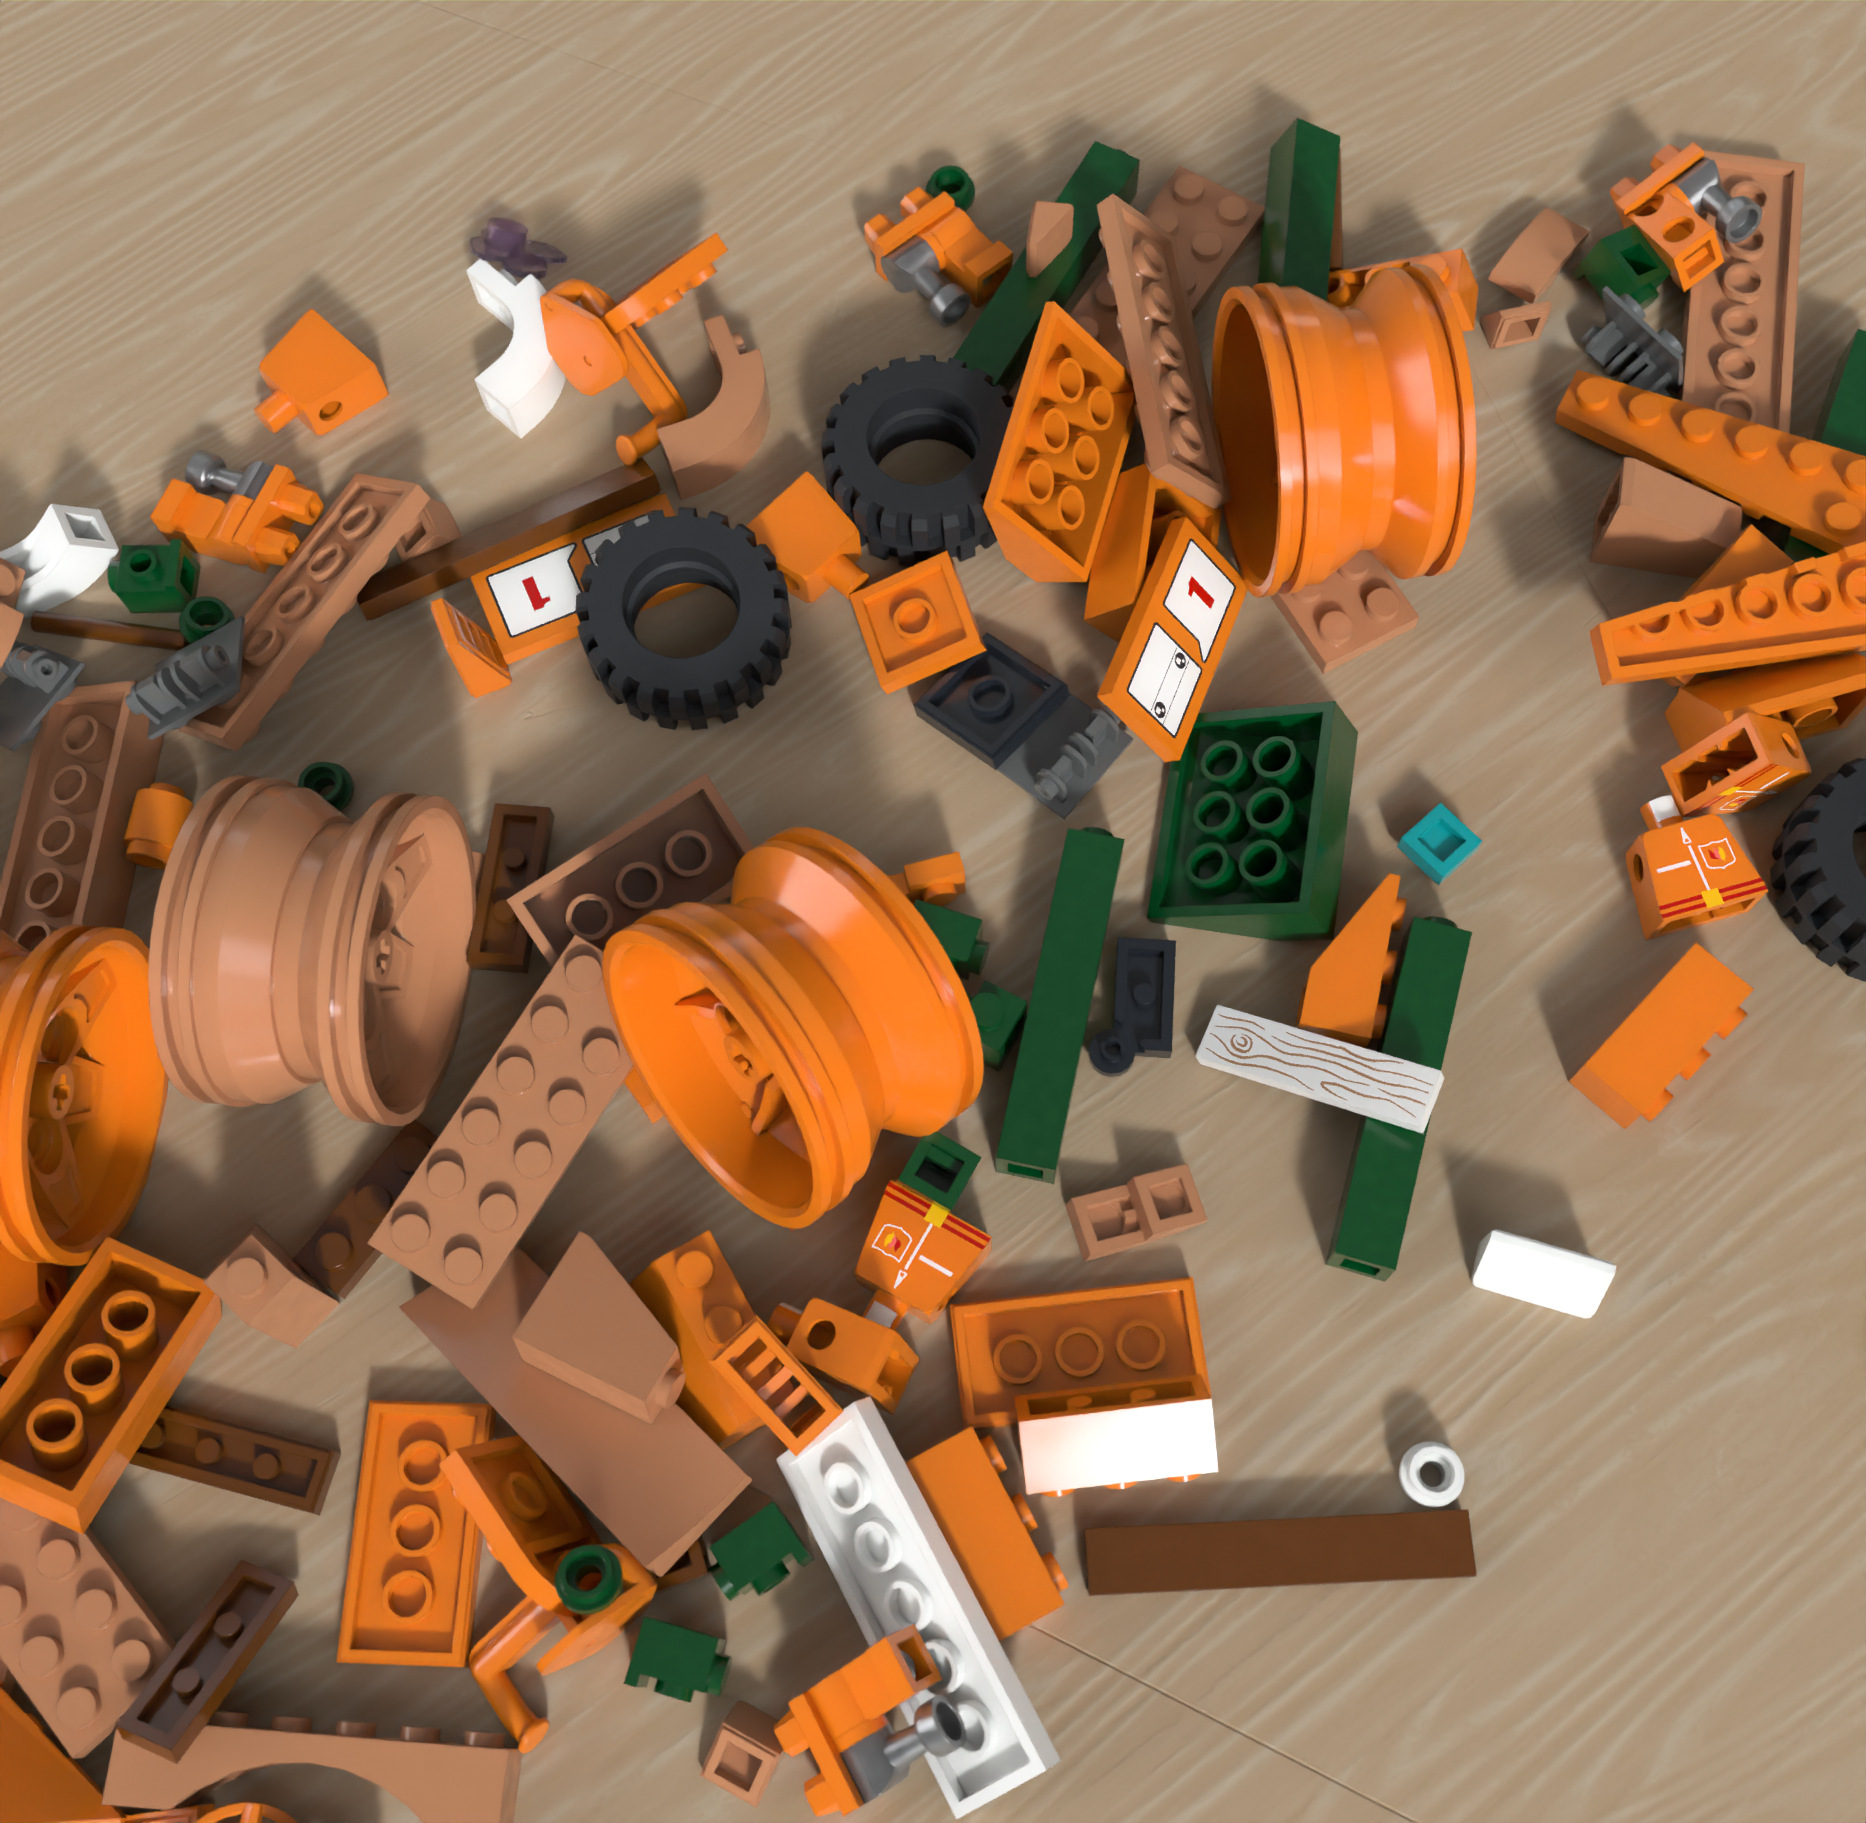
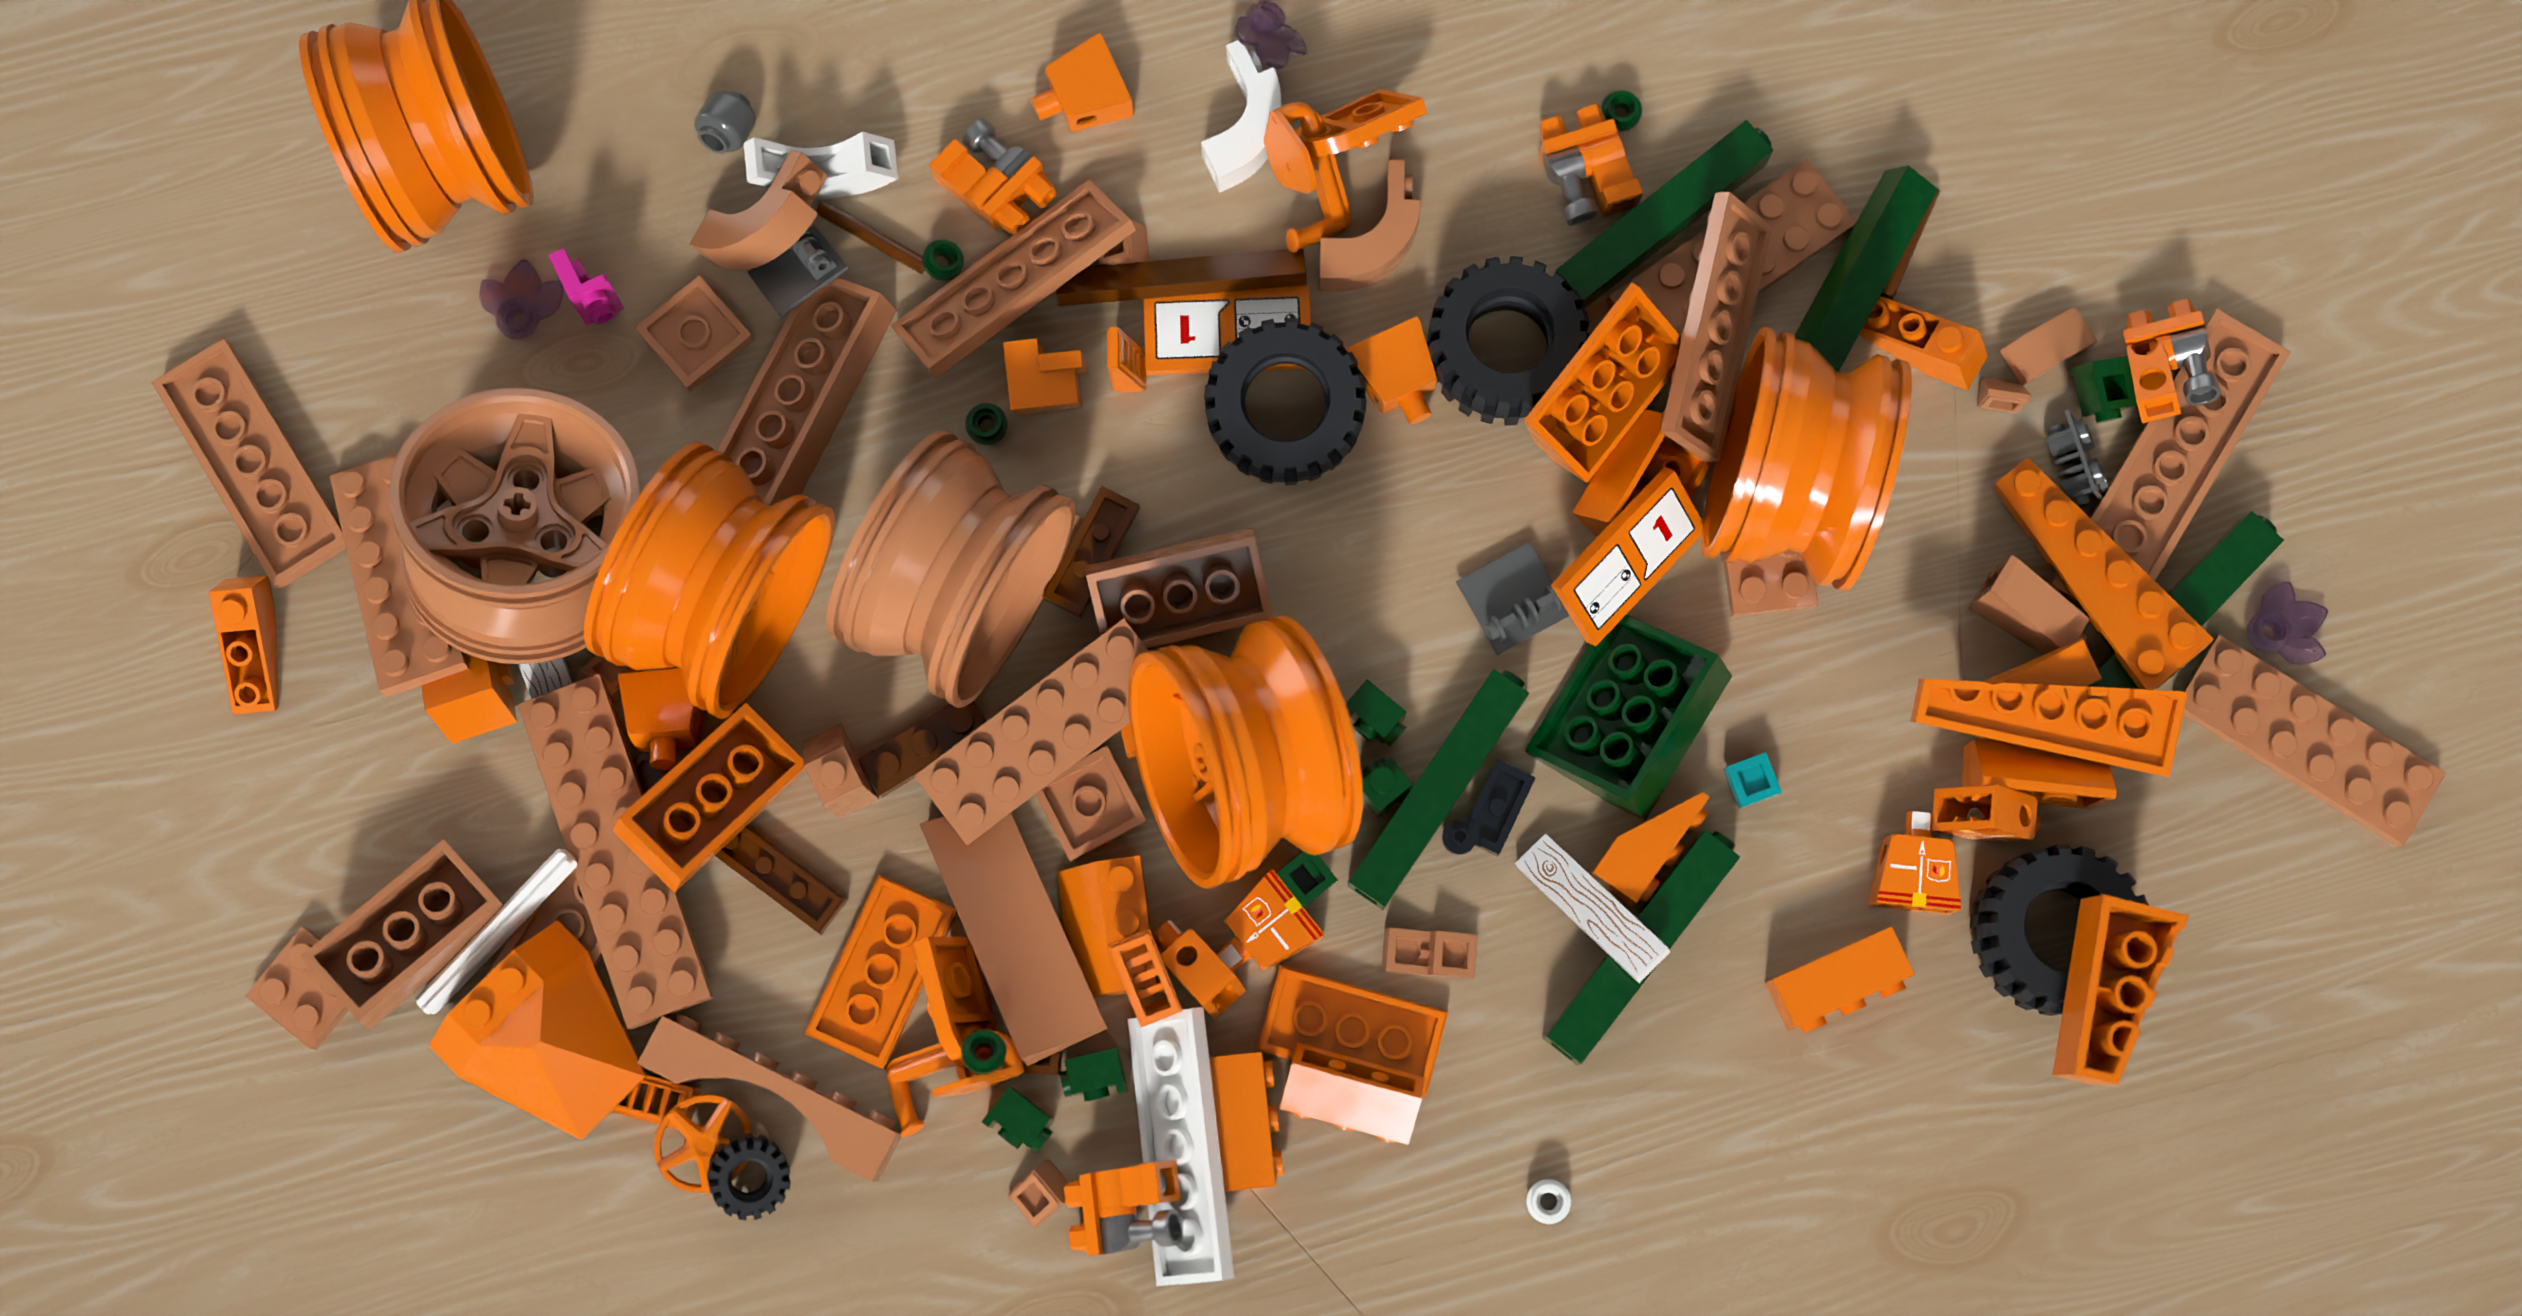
camera: 20 degrees right, 10 degrees up
(155, 577) = (922, 220): dark green brick -> none
(155, 824) = (861, 407): orange brick -> none
(191, 680) = (921, 307): dark grey hinge -> none
(207, 1661) = (728, 1002): reddish brown plate -> none
(376, 701) = (1042, 380): none -> orange plate
(601, 1335) = (1044, 897): nougat slope -> none
(622, 1195) = (1090, 805): none -> nougat plate
(917, 622) = (1452, 465): orange plate -> none
(932, 880) = (1383, 666): orange plate -> none
(992, 701) = (1481, 545): black tile -> none
(1048, 234) = (1671, 194): nougat slope -> none
(1279, 1552) = (1428, 1209): reddish brown tile -> none
(1541, 1273) = (1680, 1104): white slope -> none

